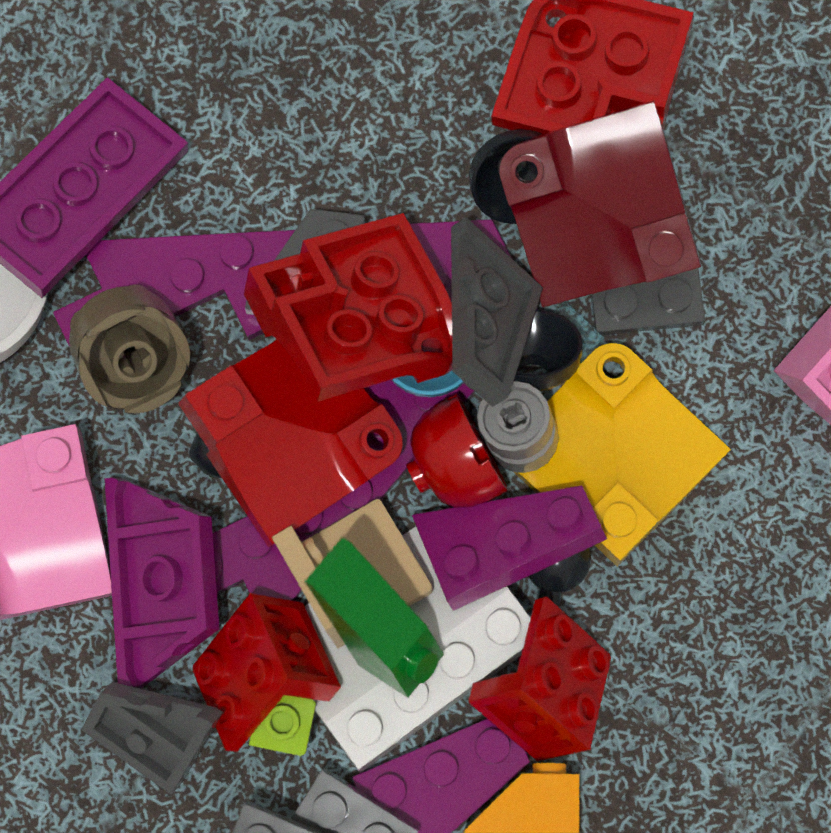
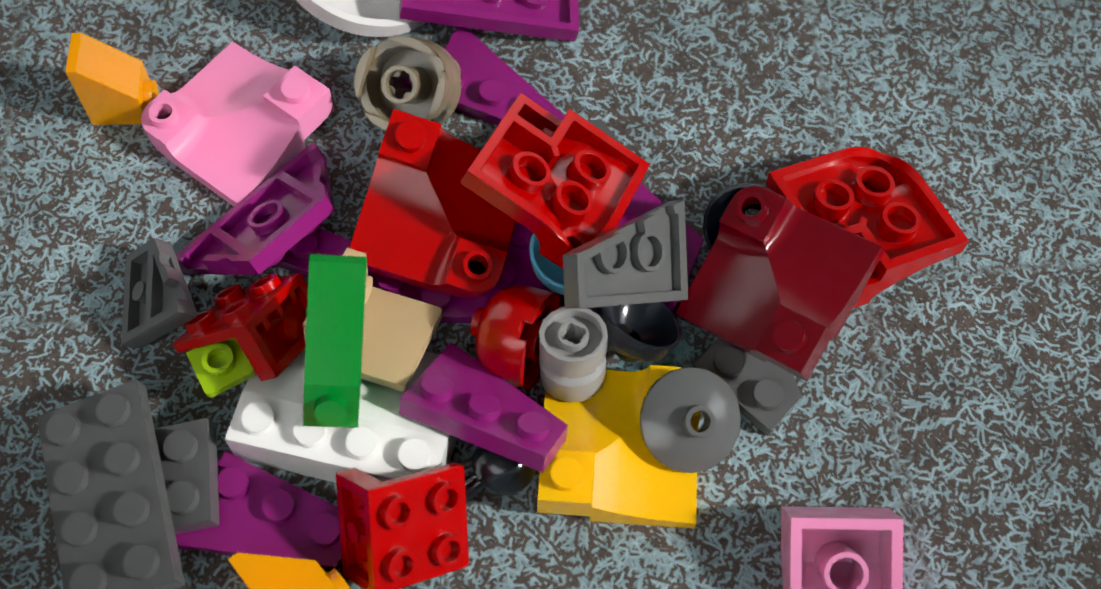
camera: 45 degrees right, 15 degrees down
(631, 382) = (668, 414): none -> dark grey dish

